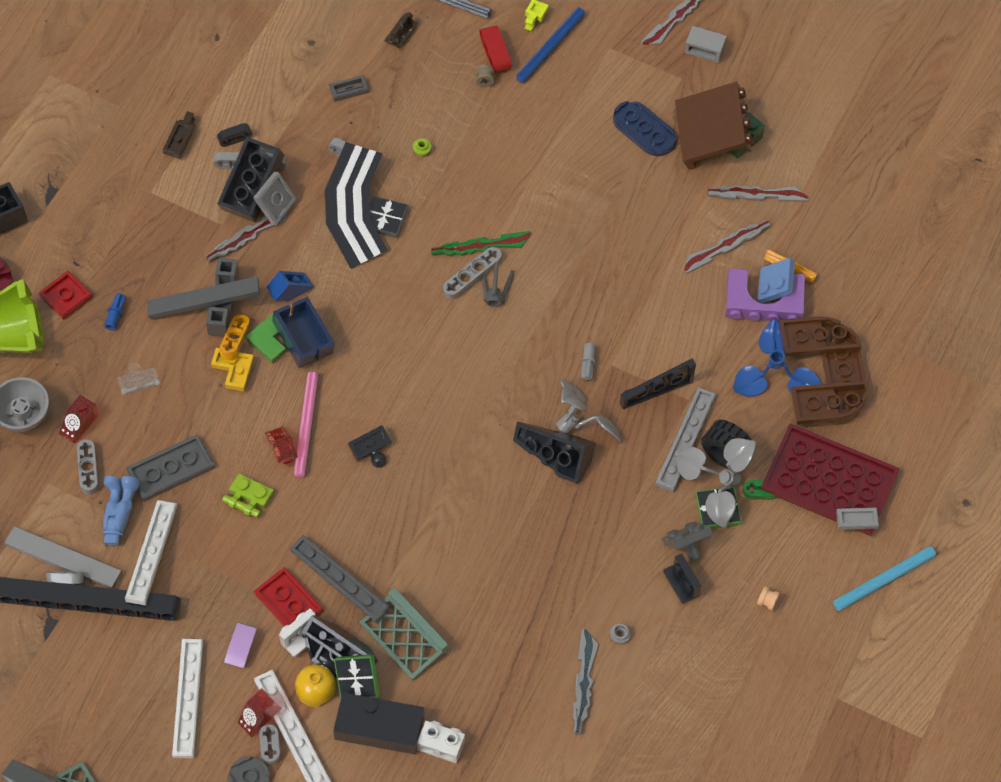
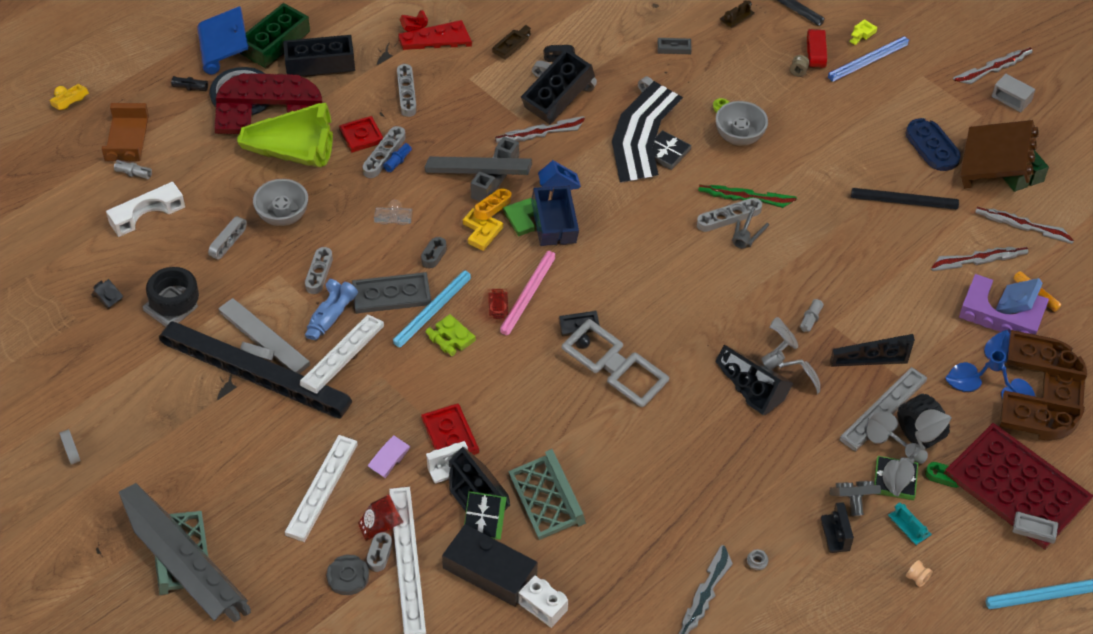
camera: 20 degrees right, 10 degrees down
(67, 144) = (413, 23): none -> red bracket
(78, 419) = (328, 229): clear red slope -> none
(92, 227) = (404, 90): none -> light grey beam
(101, 309) = (380, 150): none -> light grey beam
(102, 148) = (436, 36): none -> red wing
(191, 409) = (431, 251): none -> dark grey beam
(218, 472) = (400, 339): none -> medium azure axle
(275, 198) = (573, 106): light grey tile -> none
(315, 685) = (444, 513): yellow cylinder -> none
(340, 579) = (505, 429): dark grey tile -> none
(419, 474) = (615, 363): none -> light grey bar
(451, 165) = (741, 122): none -> light grey piece
(637, 200) = (905, 198): none -> black axle
(744, 551) = (909, 524): none -> teal hinge

